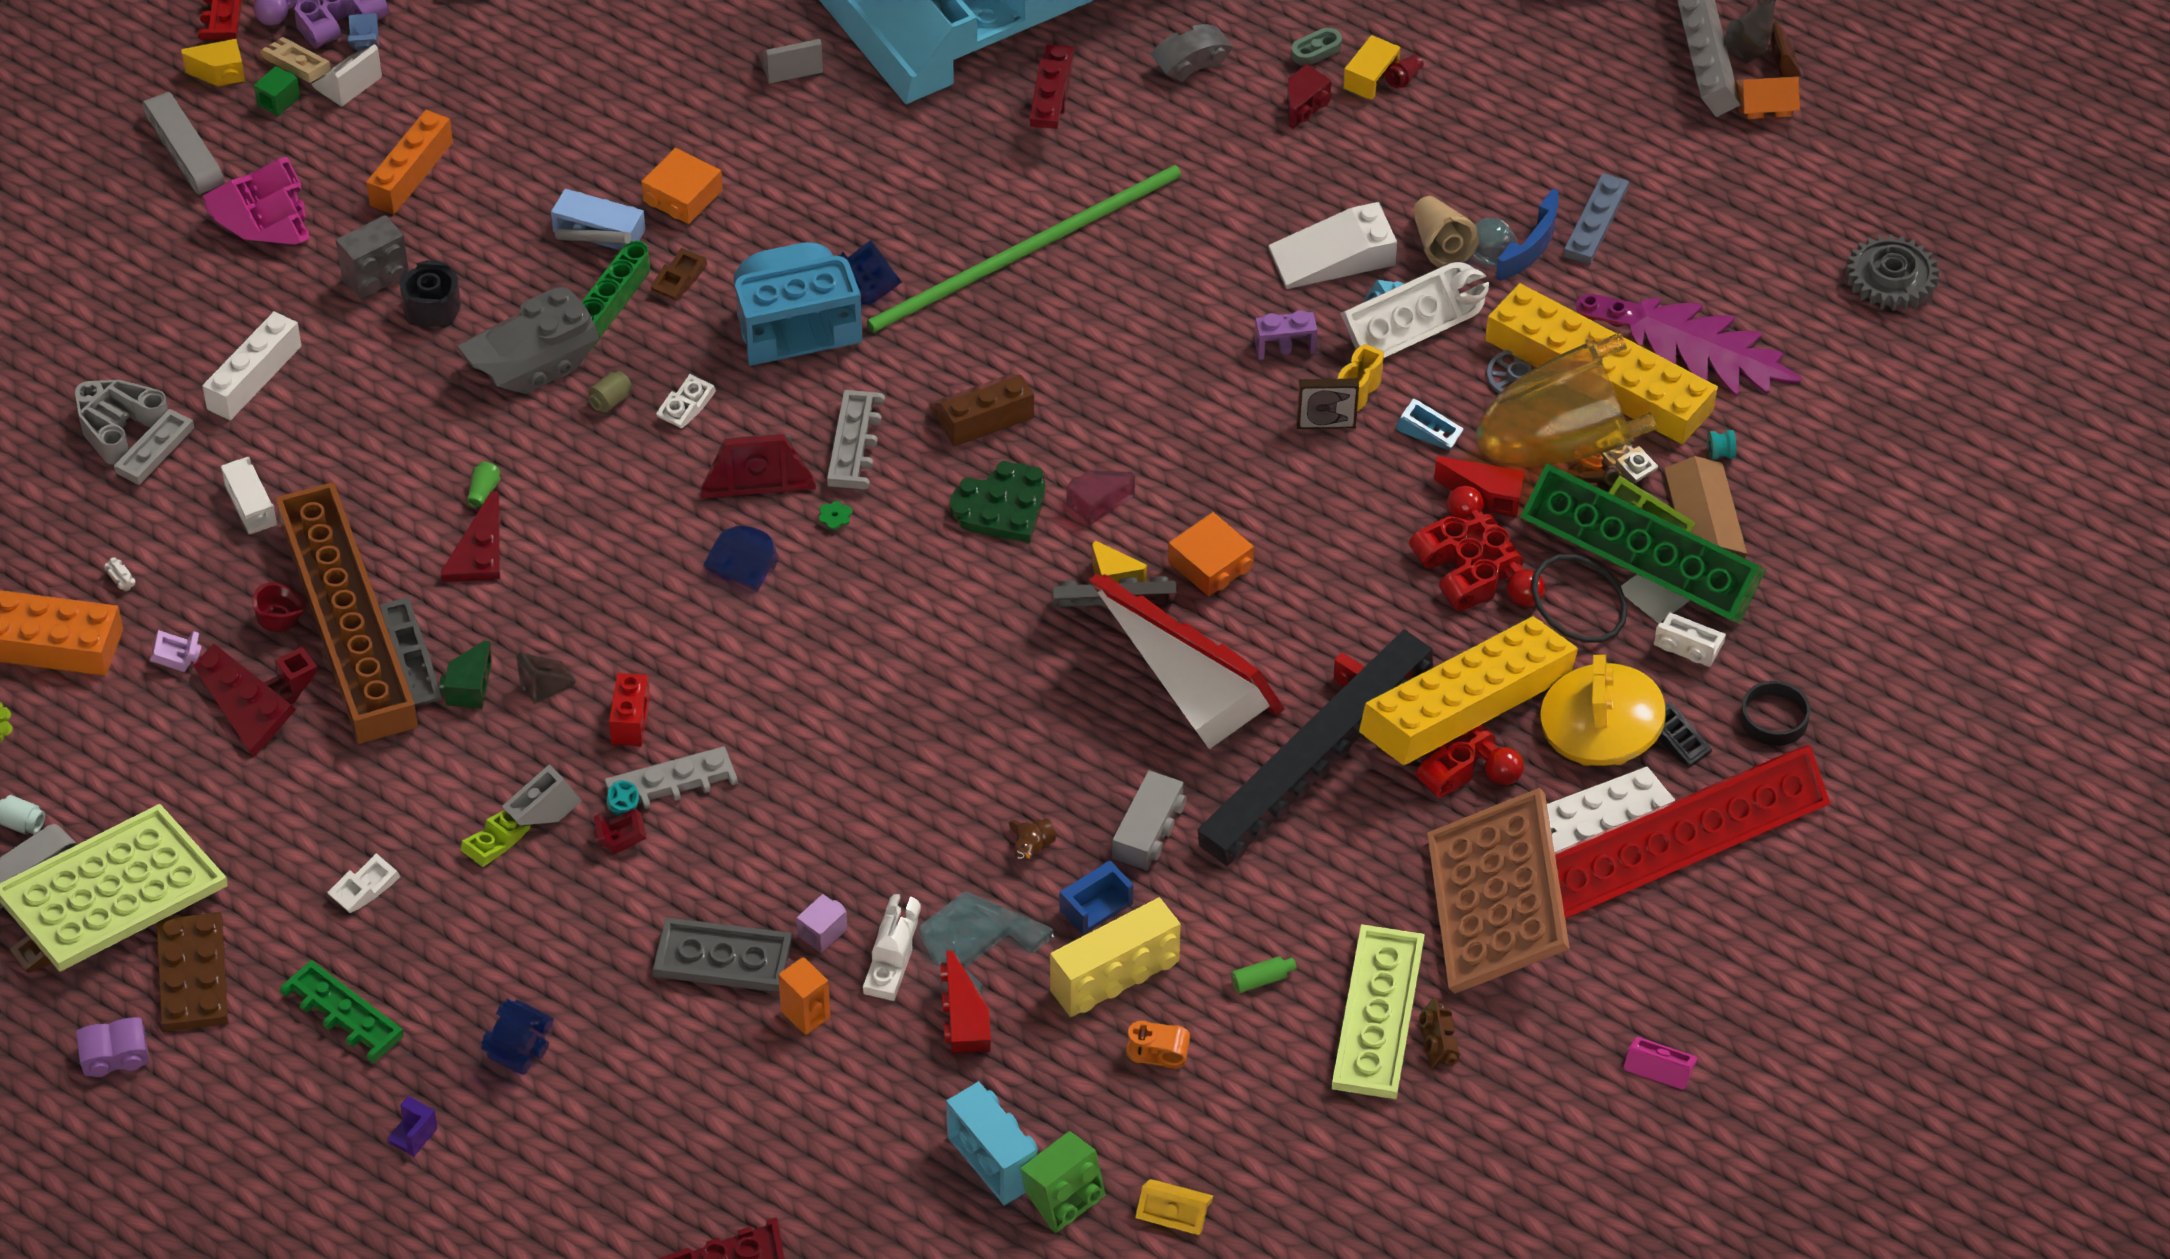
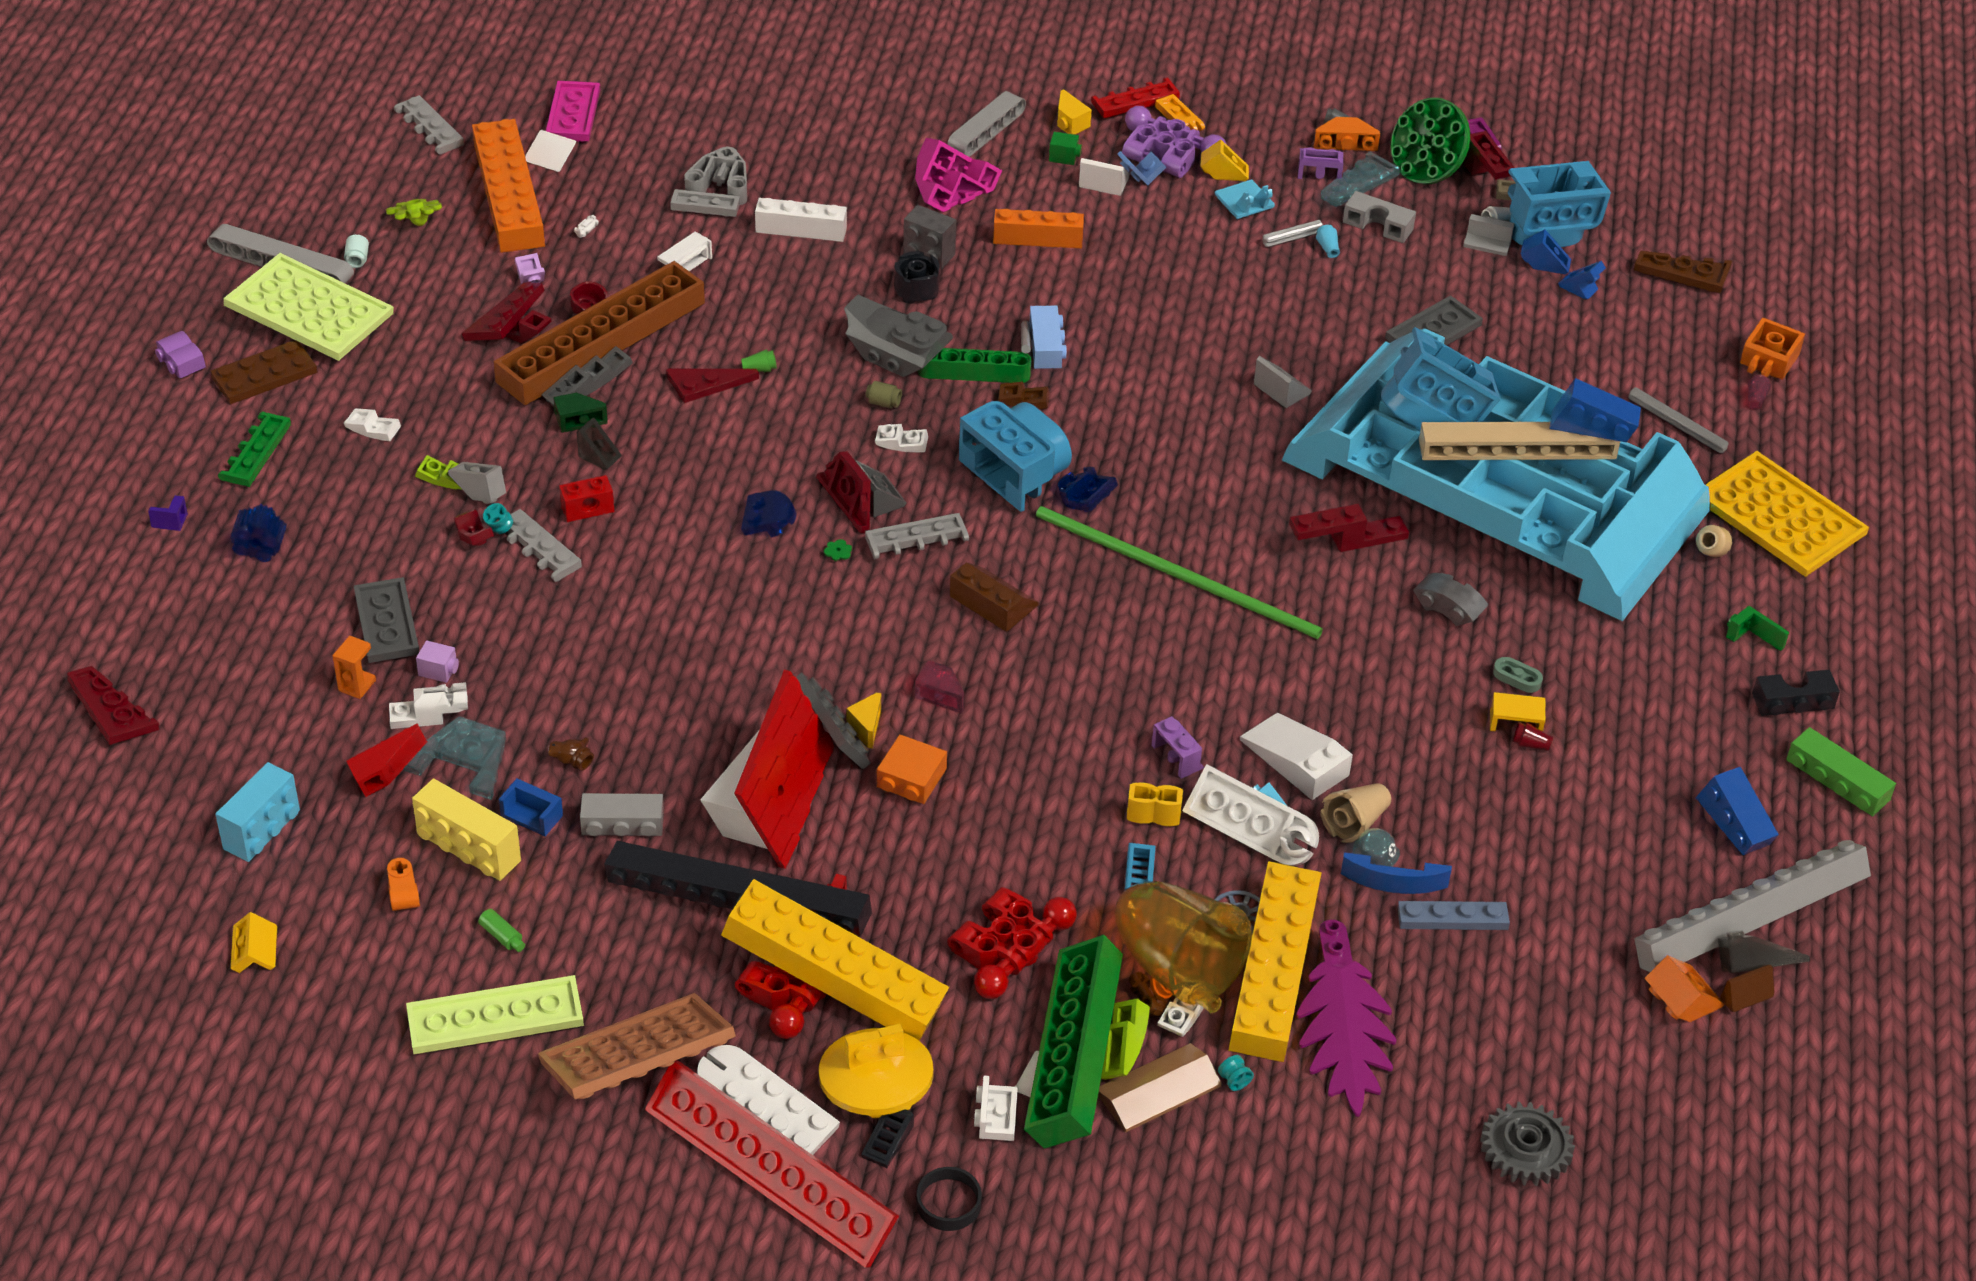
camera: 65 degrees right, 5 degrees down
(296, 59) = (1100, 146): tan hinge -> none
(682, 185) = (1104, 365): orange brick -> none
(1003, 504) = (903, 639): dark green plate -> none
(1063, 1180) = (238, 864): bright green slope -> none
(1306, 94) = (1453, 682): dark red slope -> none
(1327, 403) = (1110, 789): tile -> none
(1435, 1023) = (477, 1063): reddish brown hinge -> none
(1498, 485) = (1092, 916): red slope -> none
(1559, 628) = (989, 1061): black piece -> none
(1659, 1063) = (525, 1222): dark pink slope -> none

